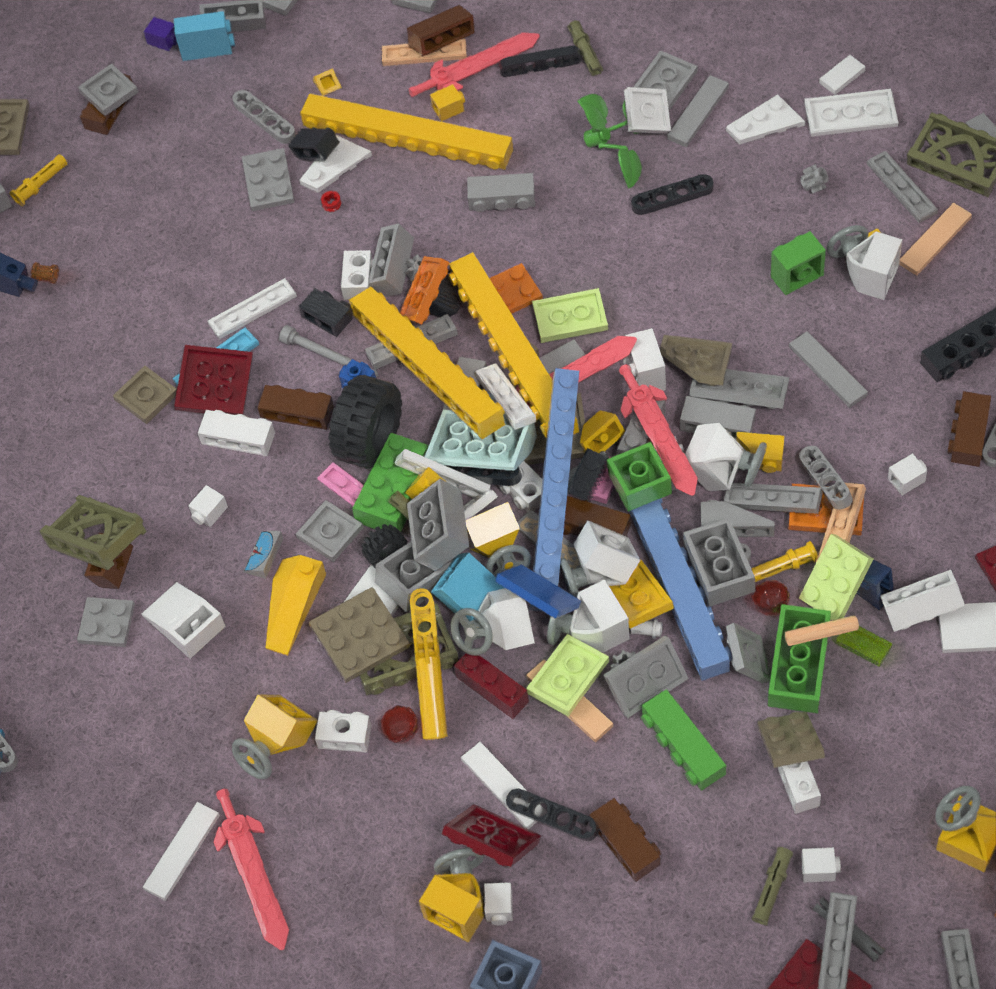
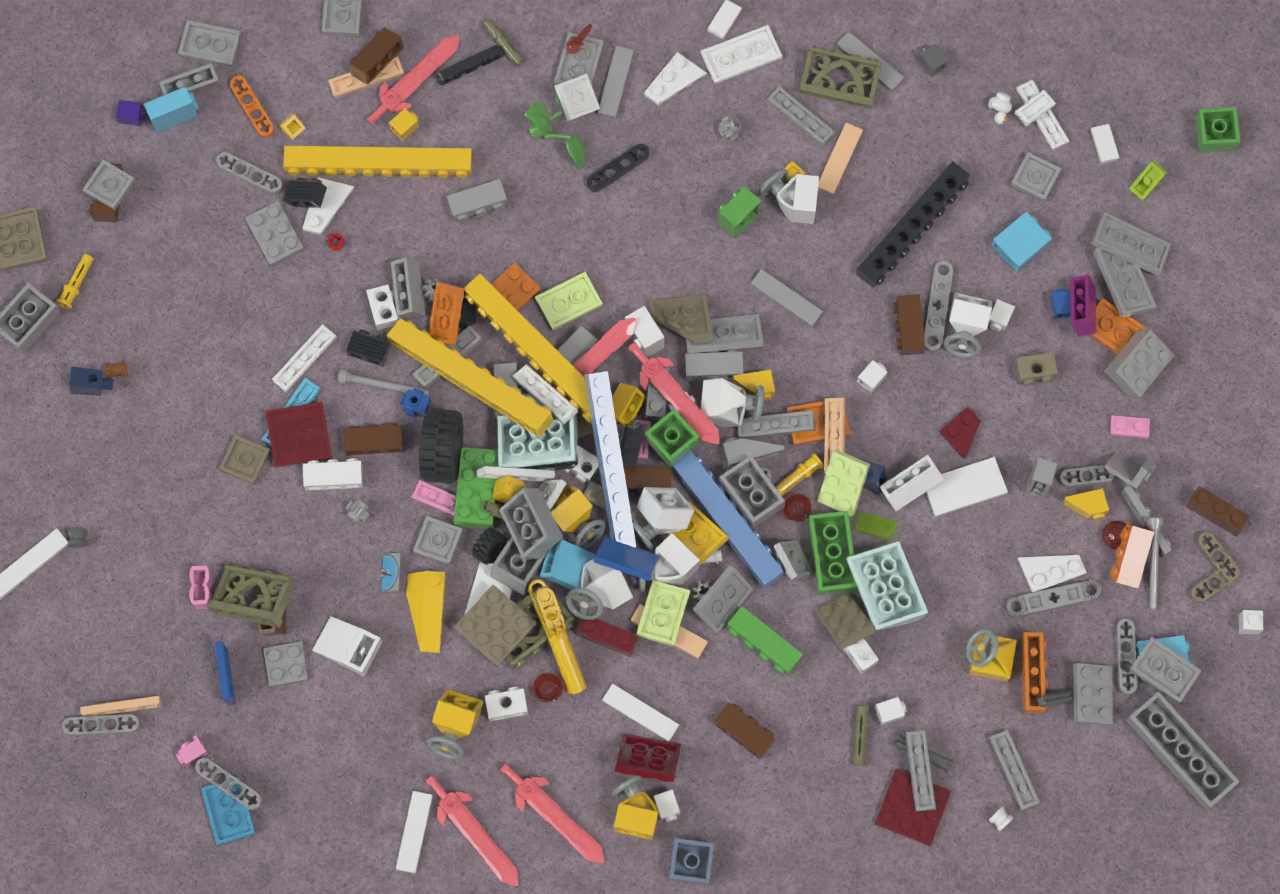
camera: 25 degrees left, 15 degrees up
(30, 609) = (225, 673): none -> blue tile
(43, 510) = (201, 583): none -> bright pink brick
(207, 506) = (332, 546): white brick -> none
(249, 476) = (357, 511): none -> light grey gear
(293, 55) = (251, 107): none -> orange beam
(354, 873) = (552, 813): none -> coral sword
(552, 814) = (686, 728): black beam -> none
(661, 63) = (573, 46): none -> clear red bar
(821, 630) = (845, 530): light nougat axle -> none
(825, 477) = (812, 397): light grey beam -> none
(856, 712) = (887, 586): none -> light aqua slope

